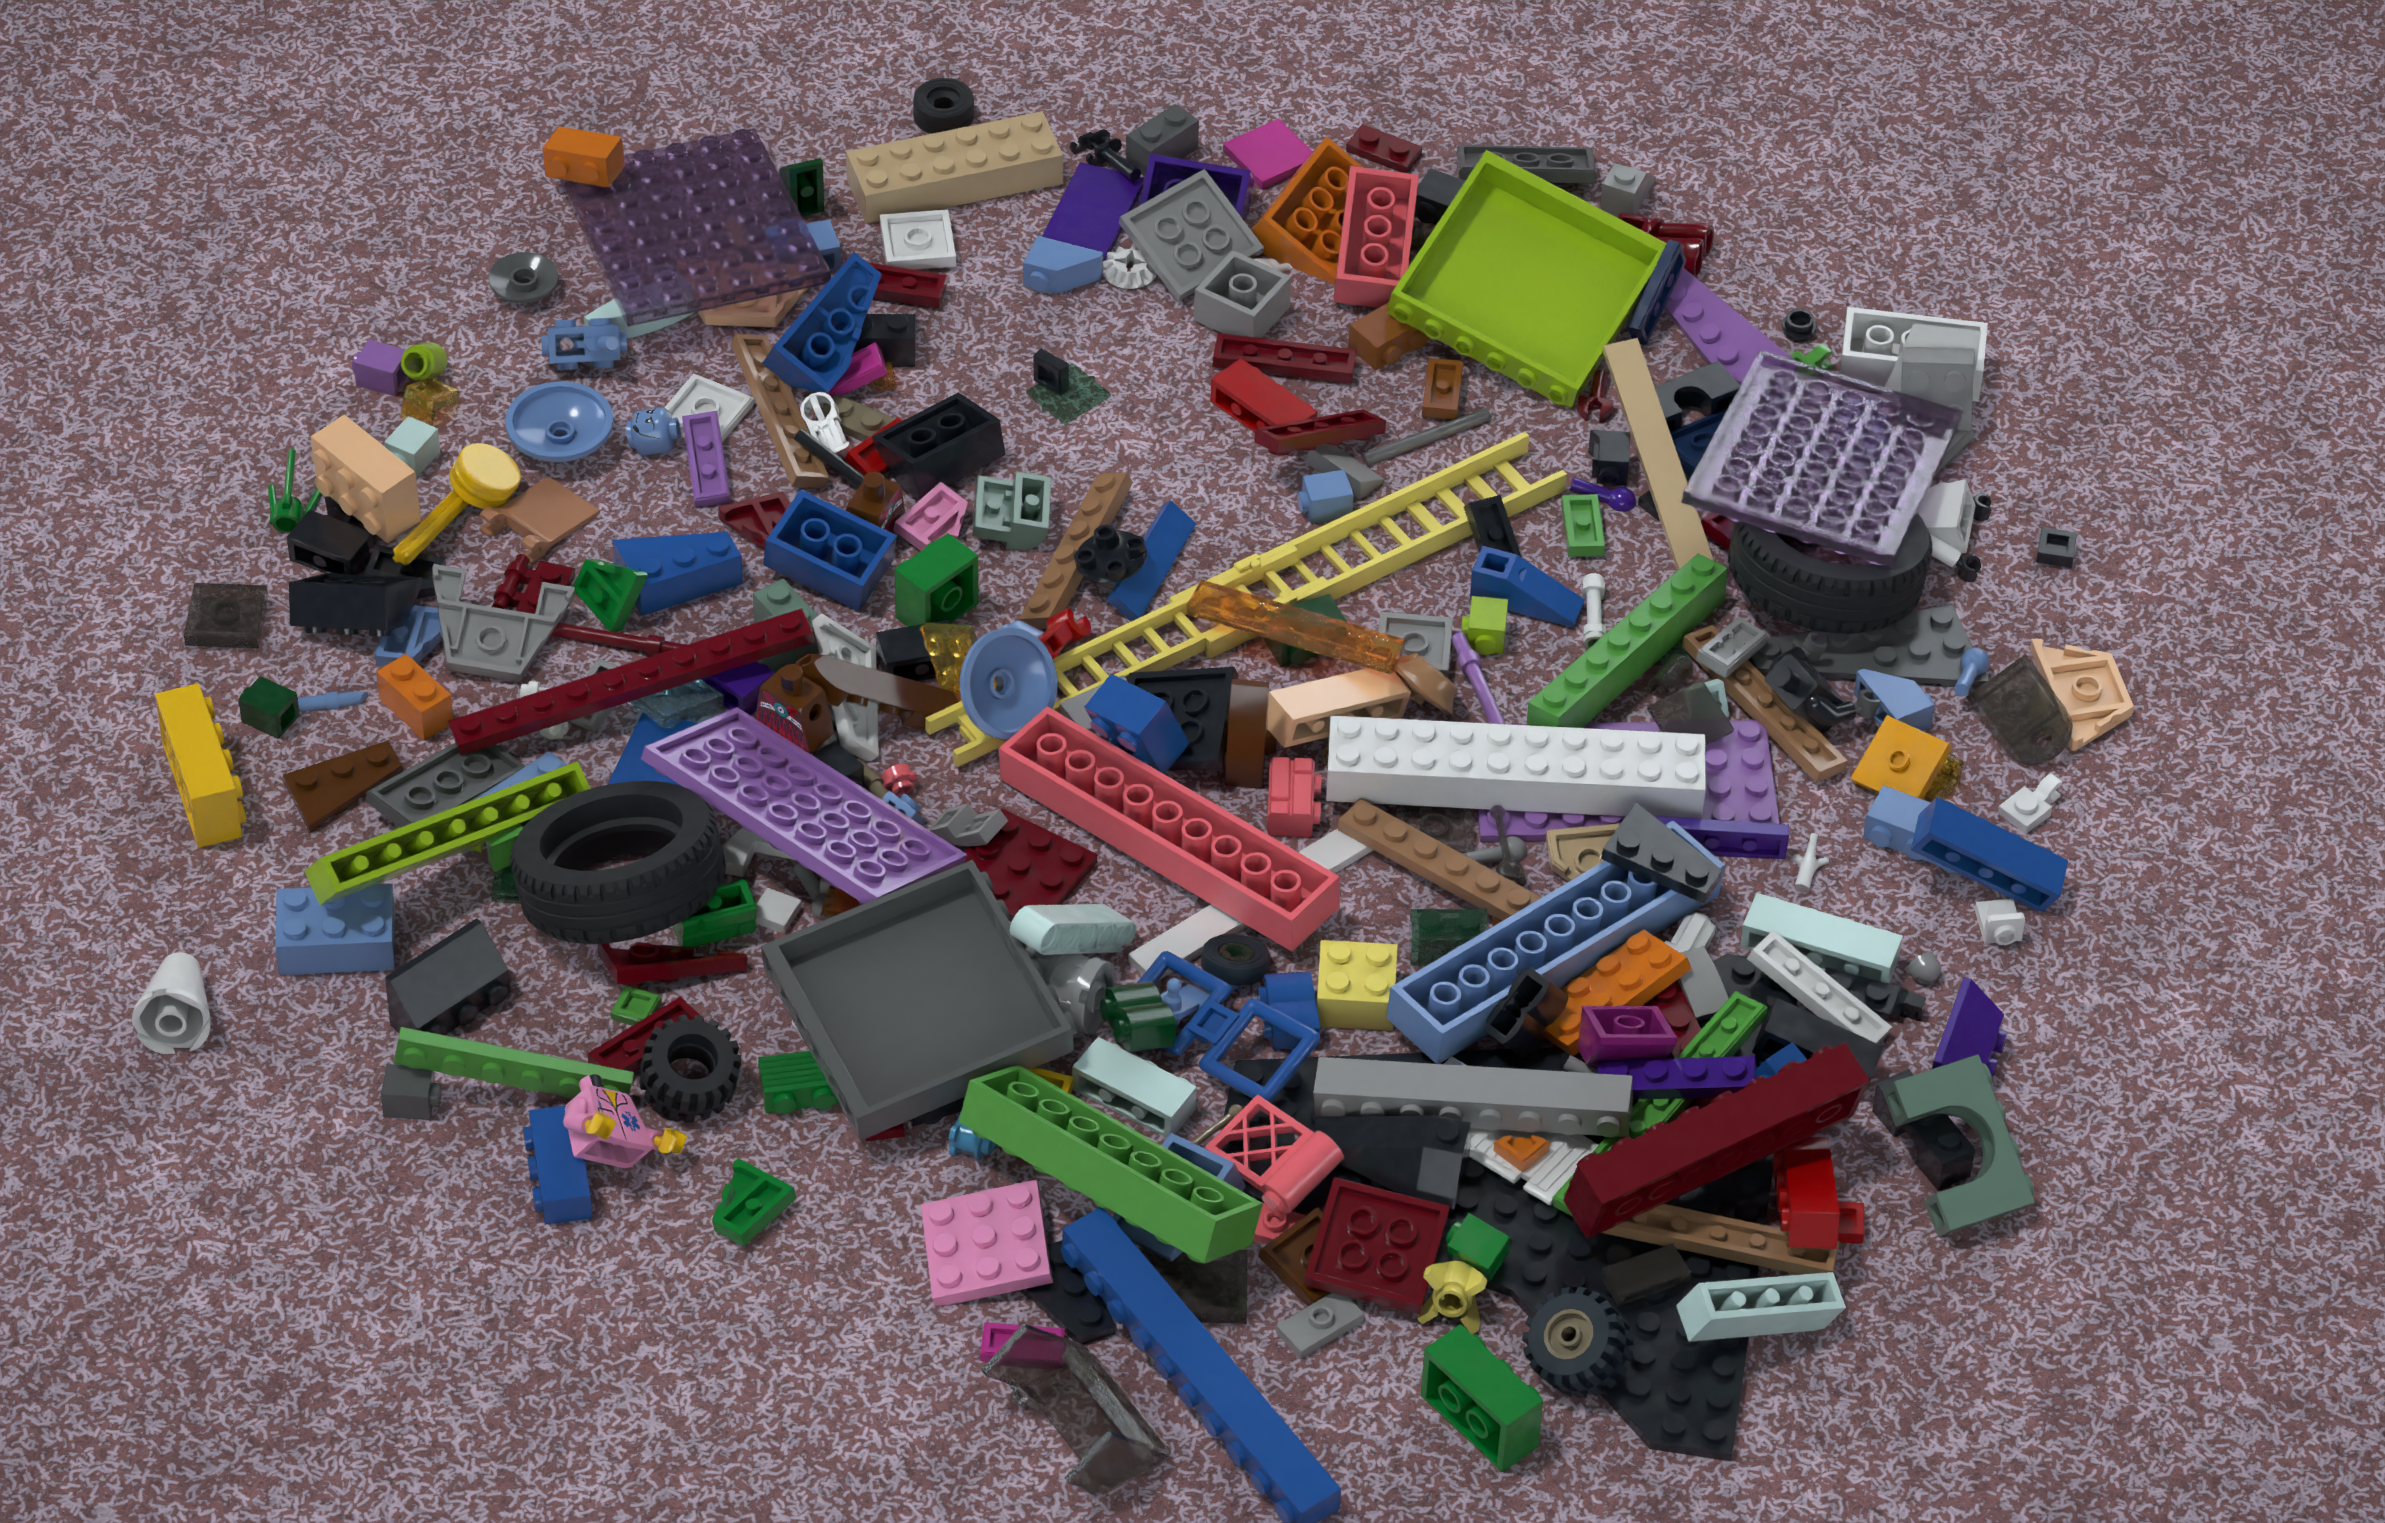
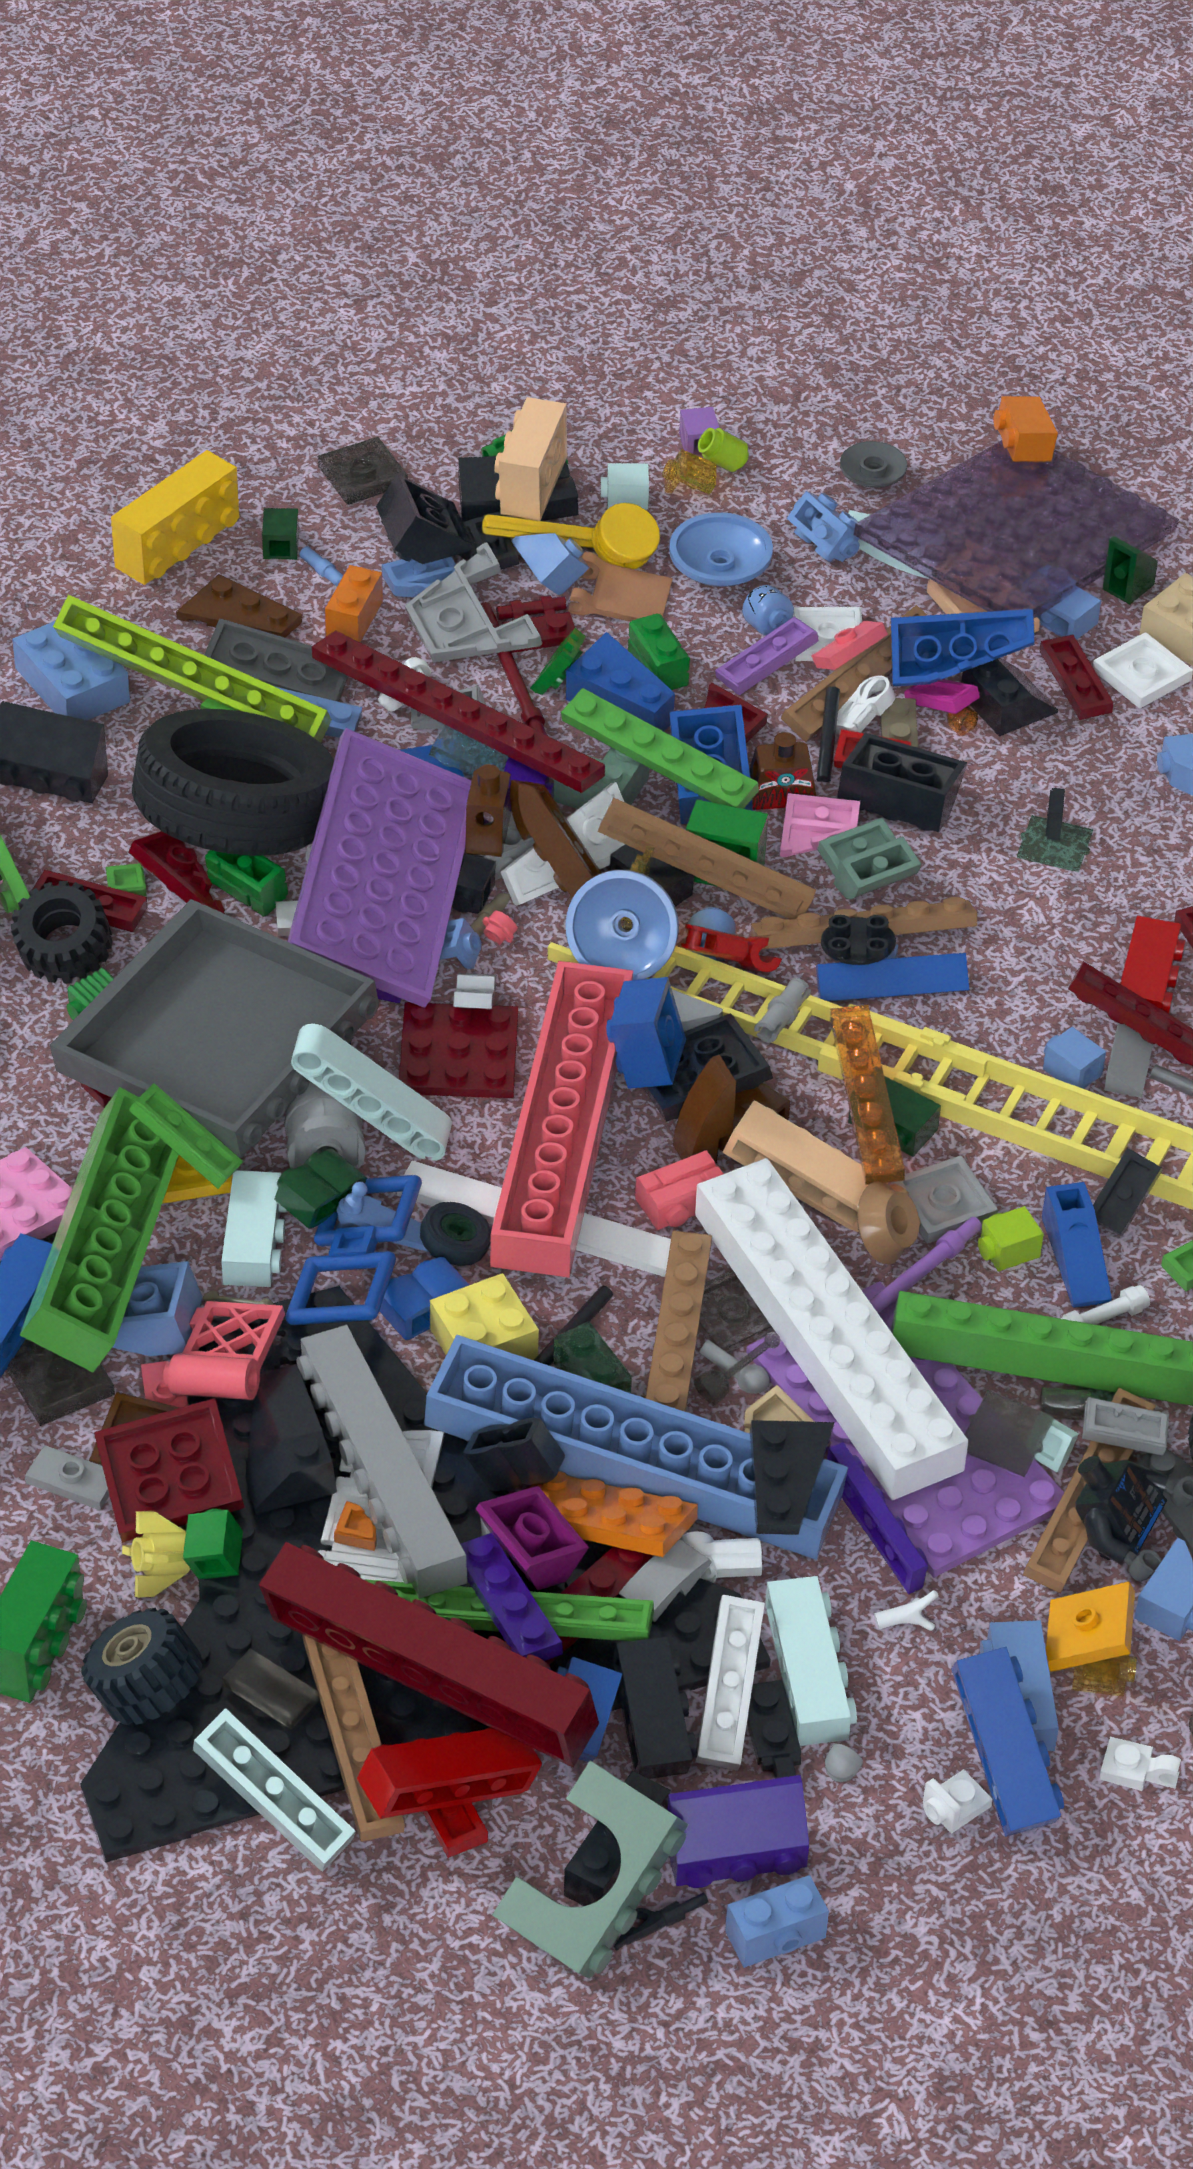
camera: 60 degrees right, 0 degrees up
(472, 537) = (552, 559): none -> medium blue slope
(649, 518) = (659, 650): none -> green brick
(750, 398) = (849, 644): none -> coral plate
(806, 569) = (659, 750): none -> bright green plate
(954, 601) = (706, 860): none -> medium nougat plate
(1038, 1068) = (185, 1135): none -> bright green tile
(1159, 636) = (782, 1010): none -> light grey pin
(1380, 931) = (585, 1314): none -> black bar
(2053, 1069) = (776, 1921): none -> medium blue brick

